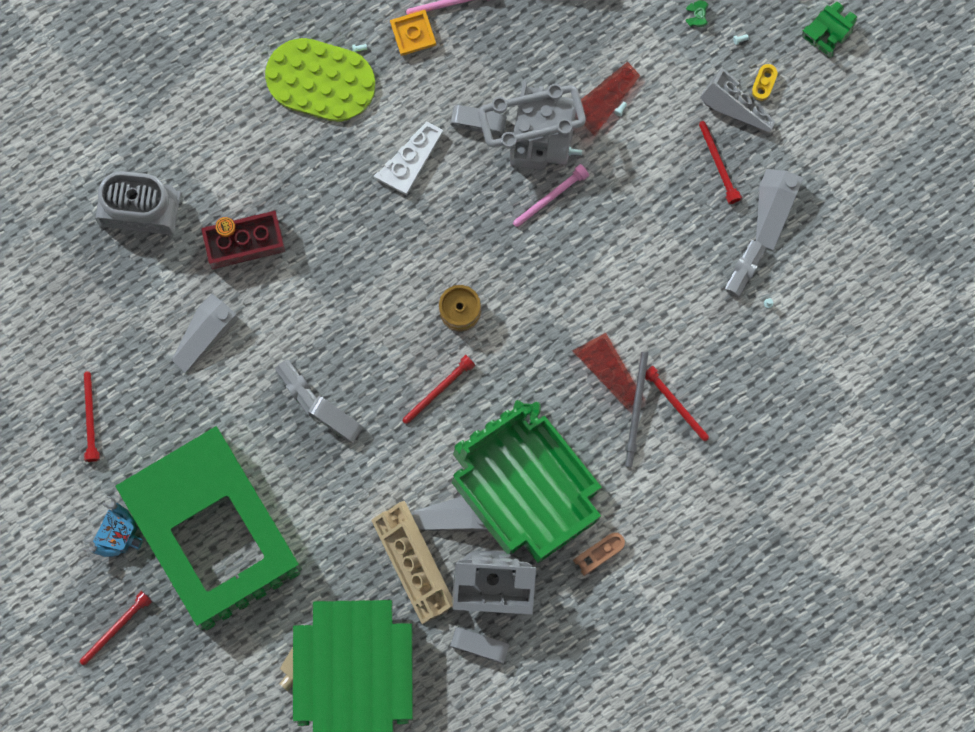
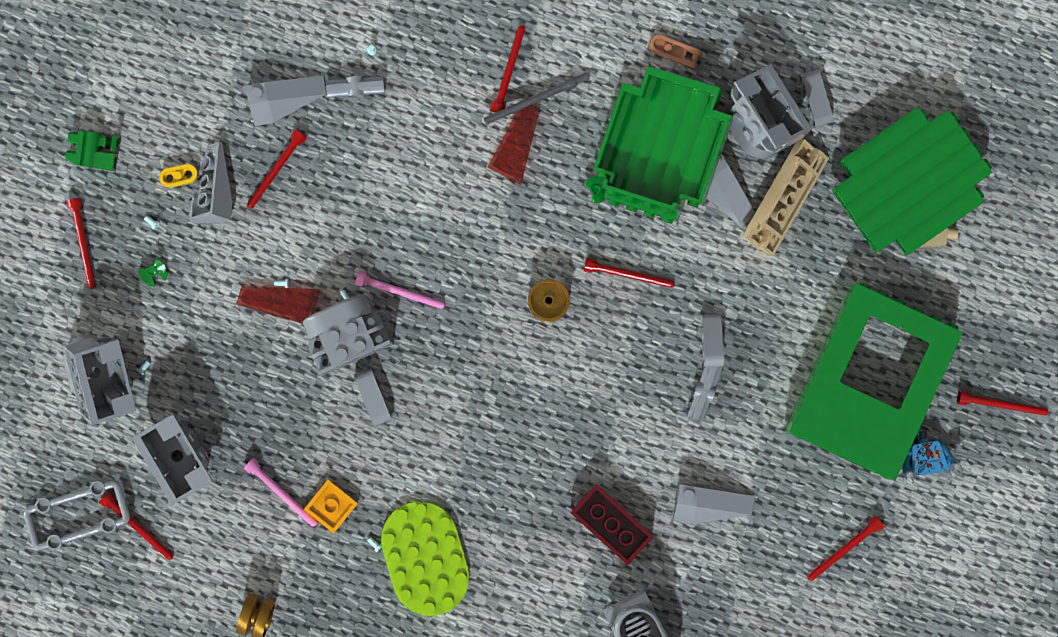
camera: 130 degrees left, 10 degrees up
(225, 227) = (613, 544): tile -> none
(408, 162) = (451, 432): white wing -> none
(509, 139) = (313, 339): light grey bar -> none

